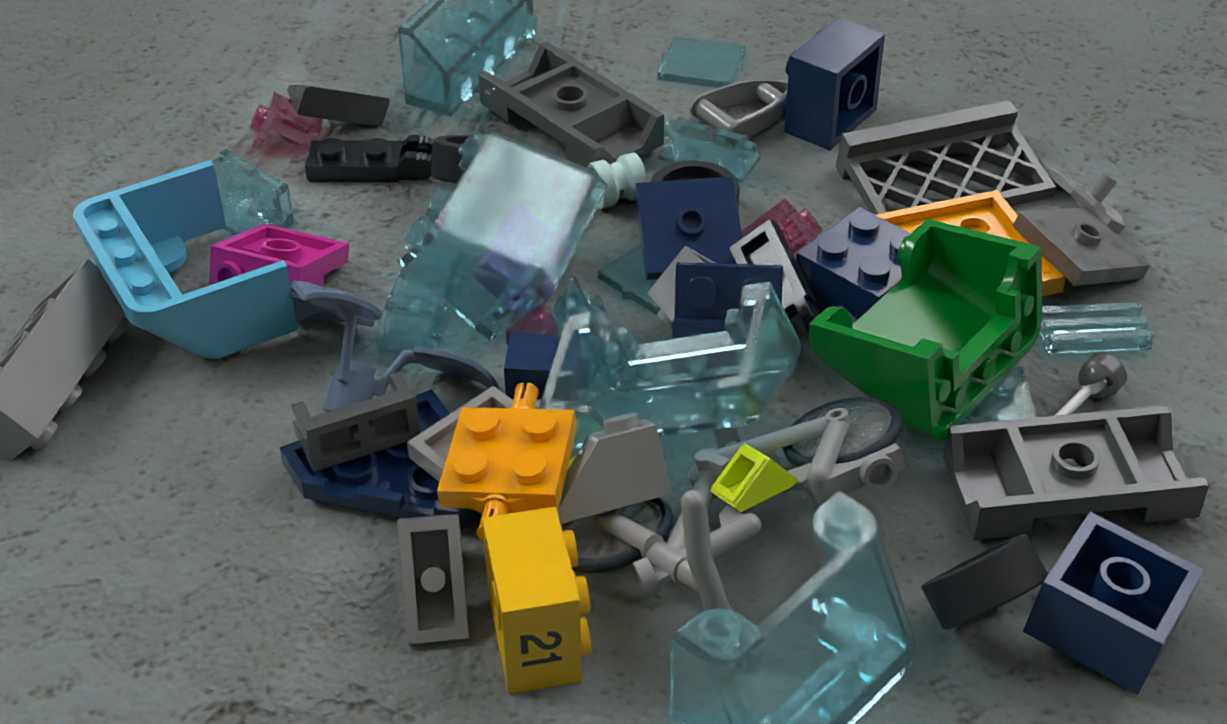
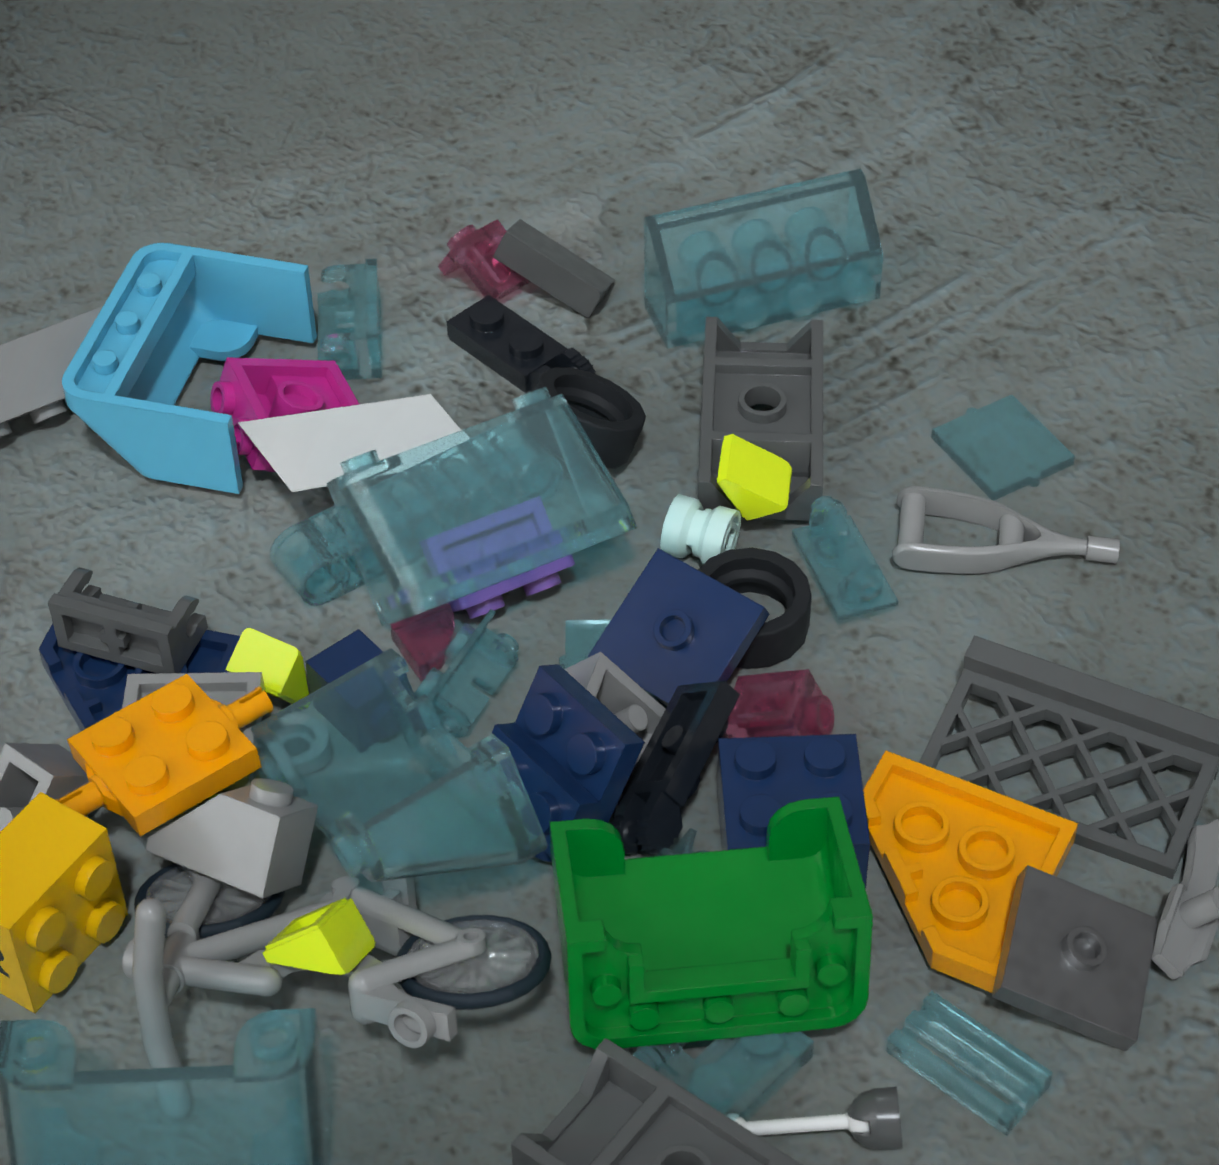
camera: 45 degrees right, 5 degrees up
(352, 249) = (311, 445): none -> white sticker
(355, 380) = (195, 576): sand blue plant -> none
(472, 380) = (278, 661): none -> neon yellow slope
(621, 132) = (753, 478): none -> neon yellow slope
(833, 82) = (1058, 567): dark blue brick -> none

